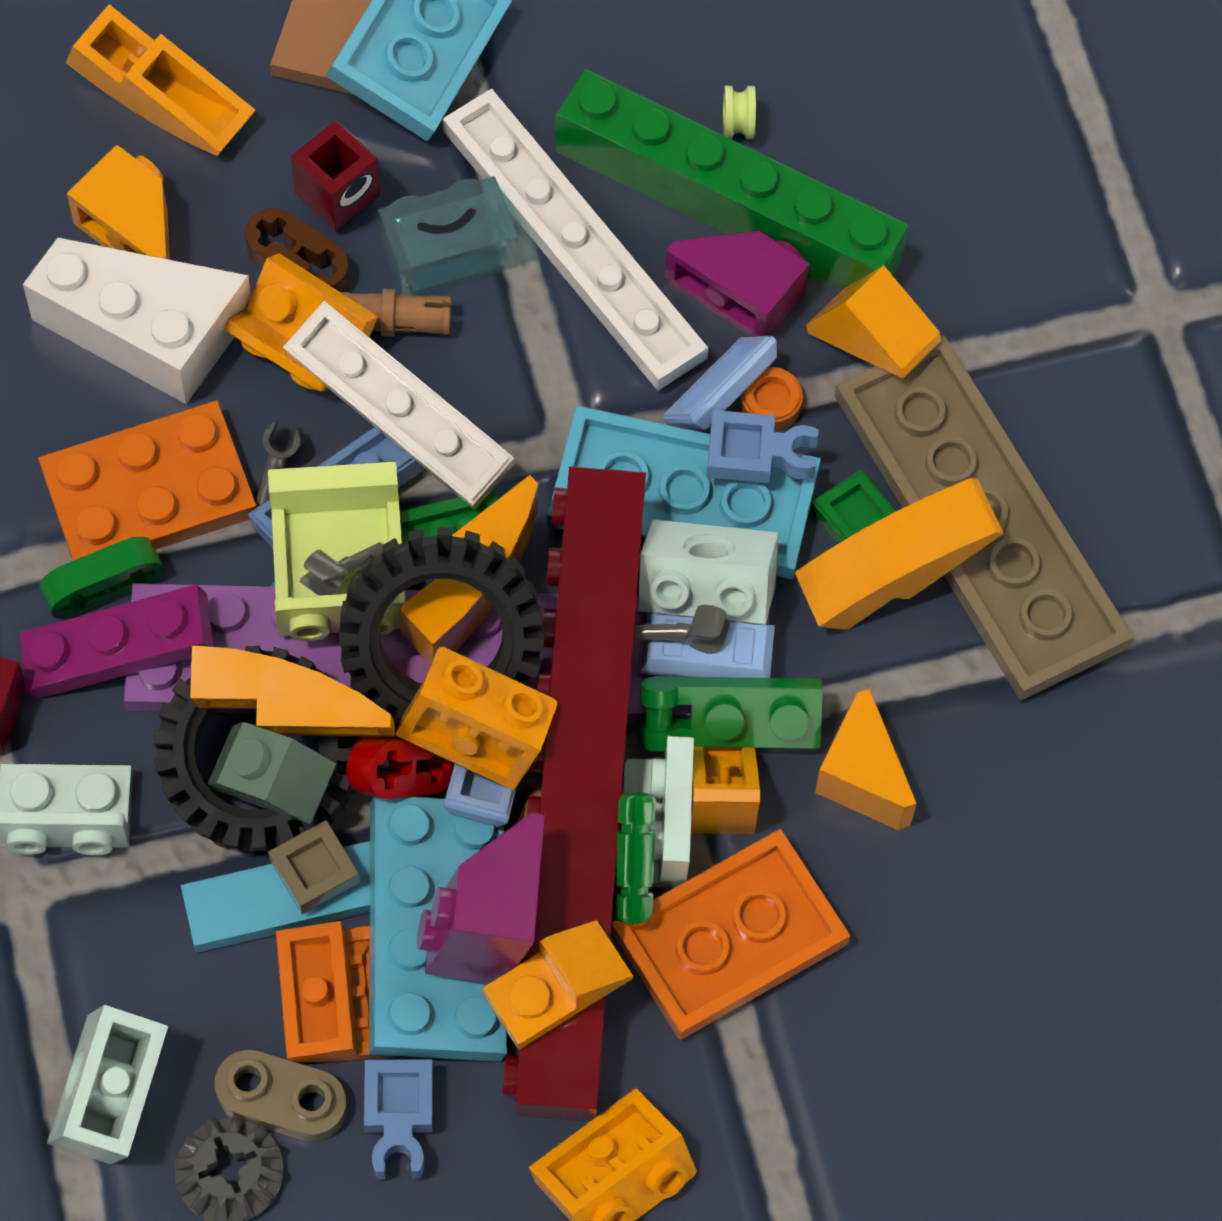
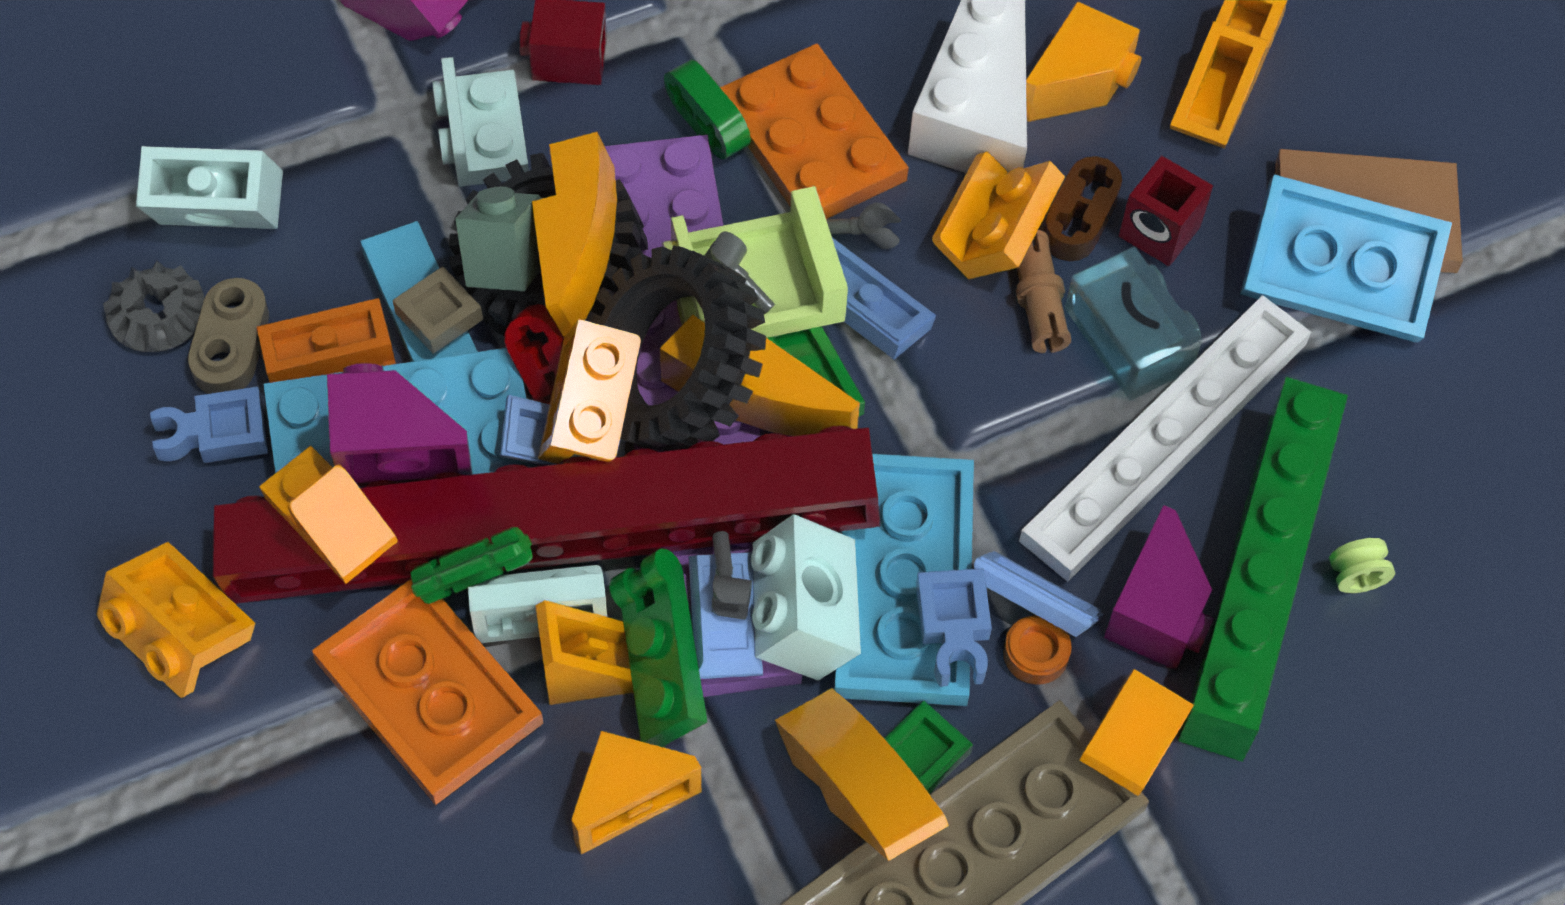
camera: 80 degrees right, 5 degrees down
(115, 641) = (640, 126): magenta plate -> none
(399, 405) = (922, 297): white tile -> none

